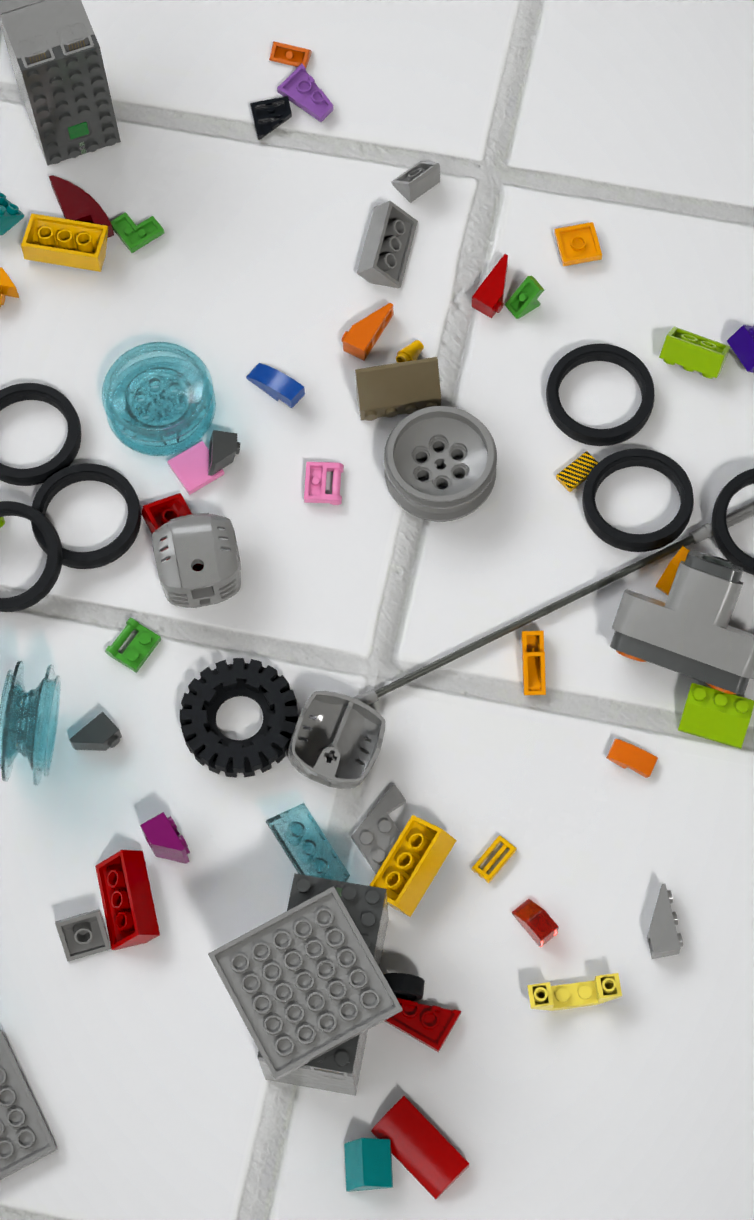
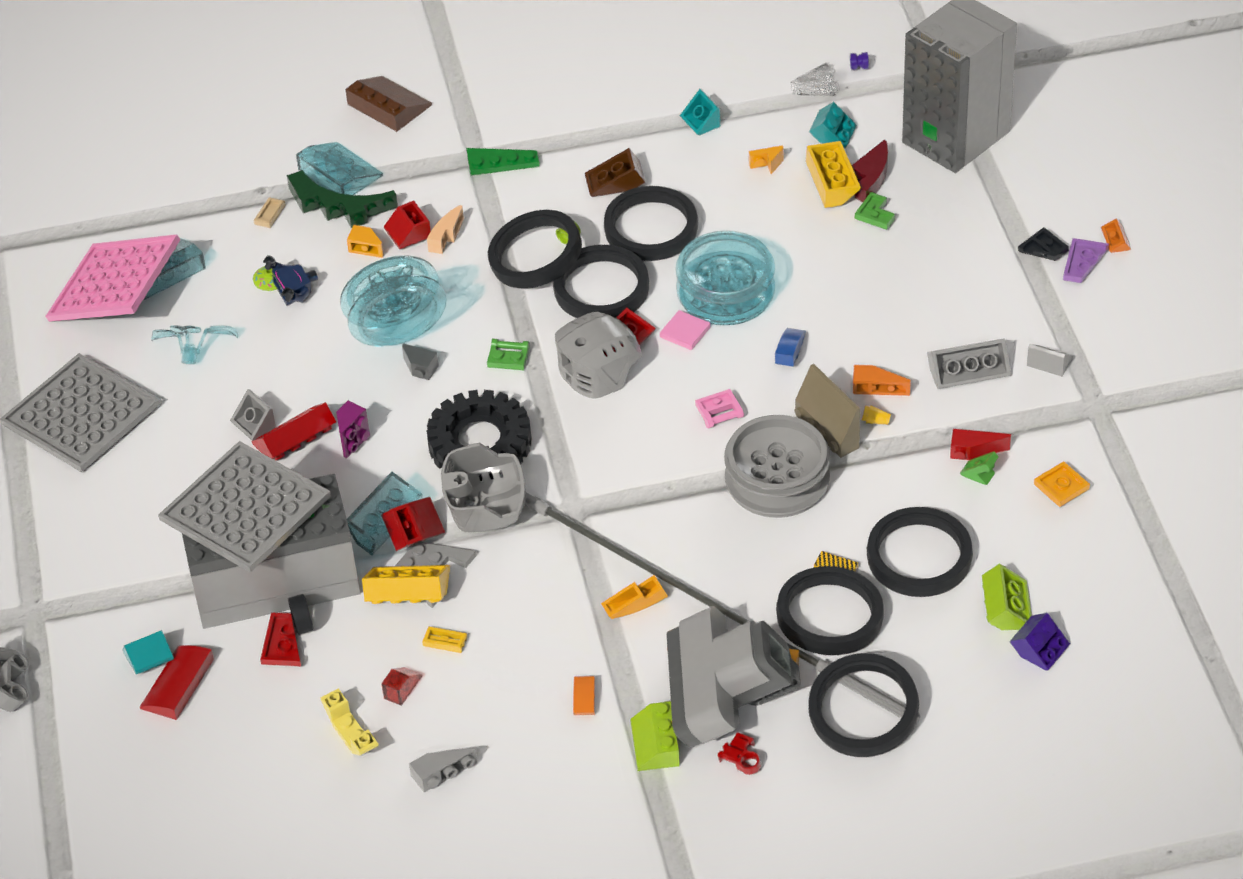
camera: 65 degrees right, 20 degrees down
(222, 450) = (704, 334): dark grey slope -> none
(342, 829) = (412, 523): none -> red slope

